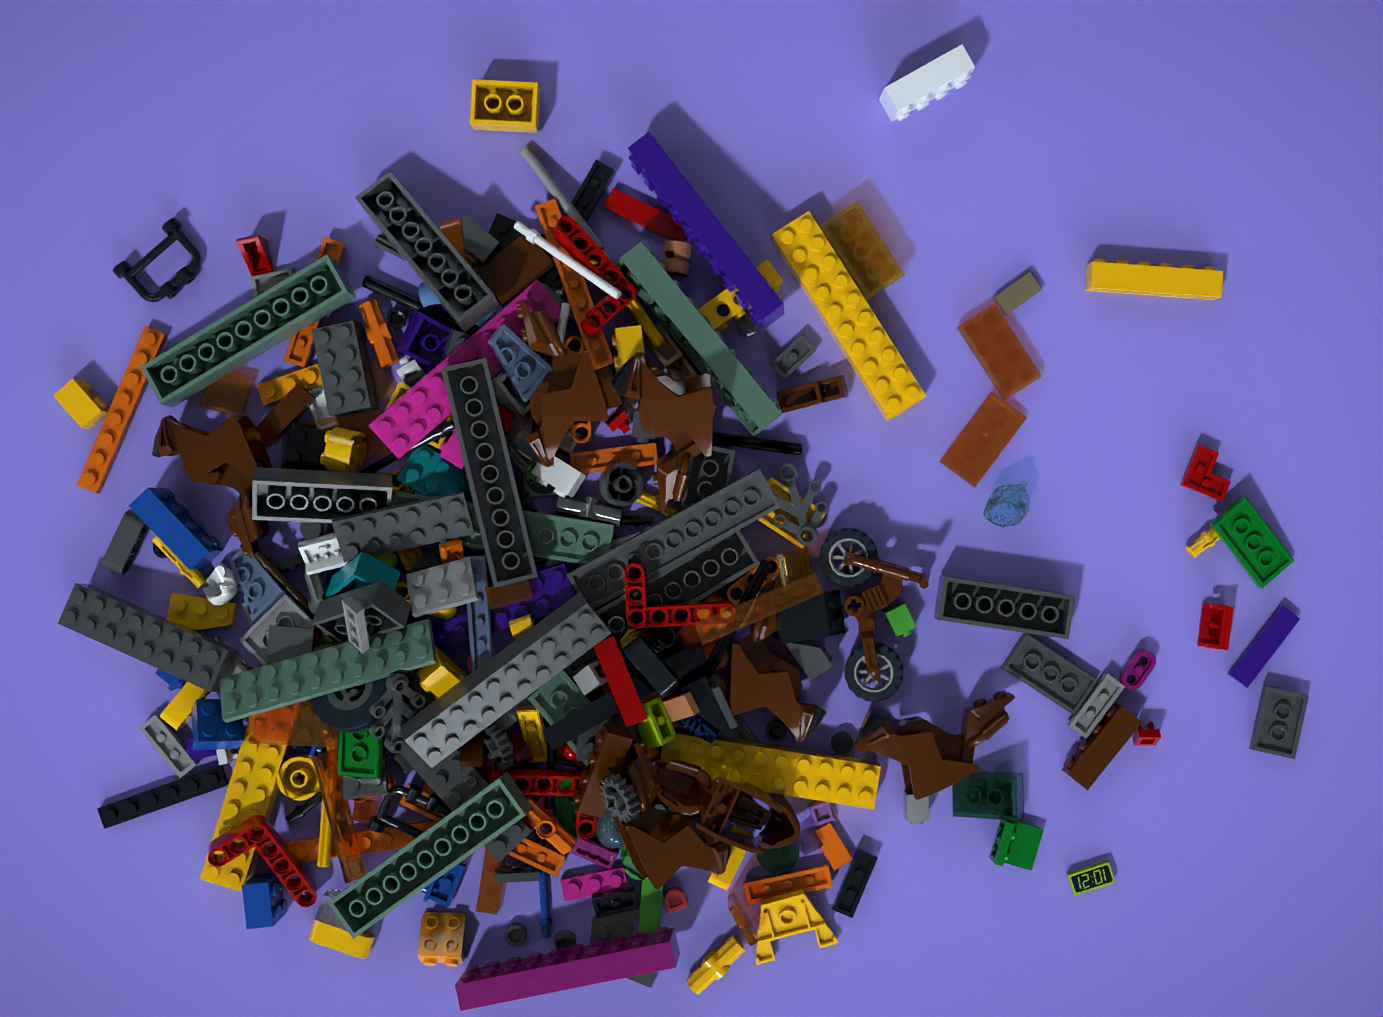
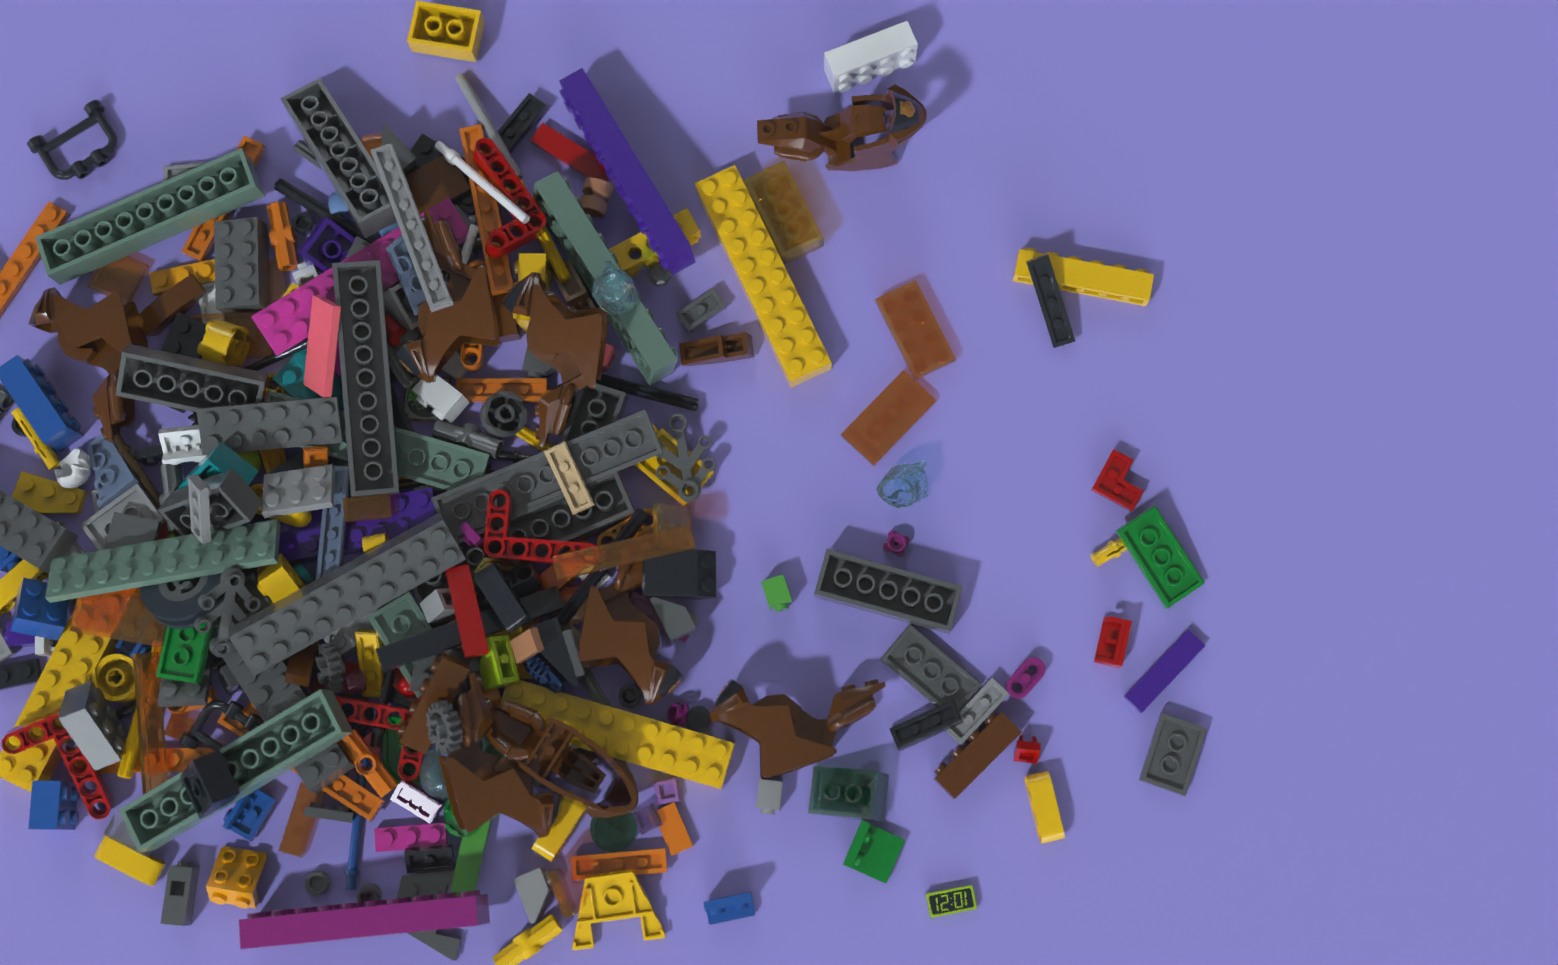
camera: 10 degrees right, 10 degrees down
(256, 254) = (173, 143): red slope -> none
(288, 827) = (93, 725): none -> dark grey brick
(311, 529) = (177, 420): dark grey tile -> none
(393, 961) = (180, 894): none -> dark grey brick
(410, 875) = (209, 783): none -> black slope
(442, 445) = (322, 345): none -> coral tile
(456, 656) = (304, 573): none -> teal tile
(511, 320) = (412, 227): none -> light grey tile
(610, 608) = (470, 536): none -> magenta plate
(617, 420) = (511, 352): red tile -> none
(675, 900) = (495, 867): coral tile -> none
(695, 541) = (569, 478): none -> tan tile
(714, 917) = (534, 891): none -> light grey slope
(716, 357) = (614, 291): none -> clear light blue helmet
(823, 742) = (678, 713): none -> magenta plate
(854, 883) = (691, 872): black plate -> none
(871, 599) = (746, 567): piece -> none
(873, 174) = (805, 136): none -> reddish brown piece
(893, 909) = (729, 908): none -> blue bracket
(1008, 563) = (894, 537): none -> magenta plate
(1017, 293) = (941, 275): dark tan tile -> none
(1052, 724) = (926, 725): none -> black tile
(1127, 309) = (1050, 301): none -> black plate
(1167, 784) = (1044, 807): none -> yellow beam

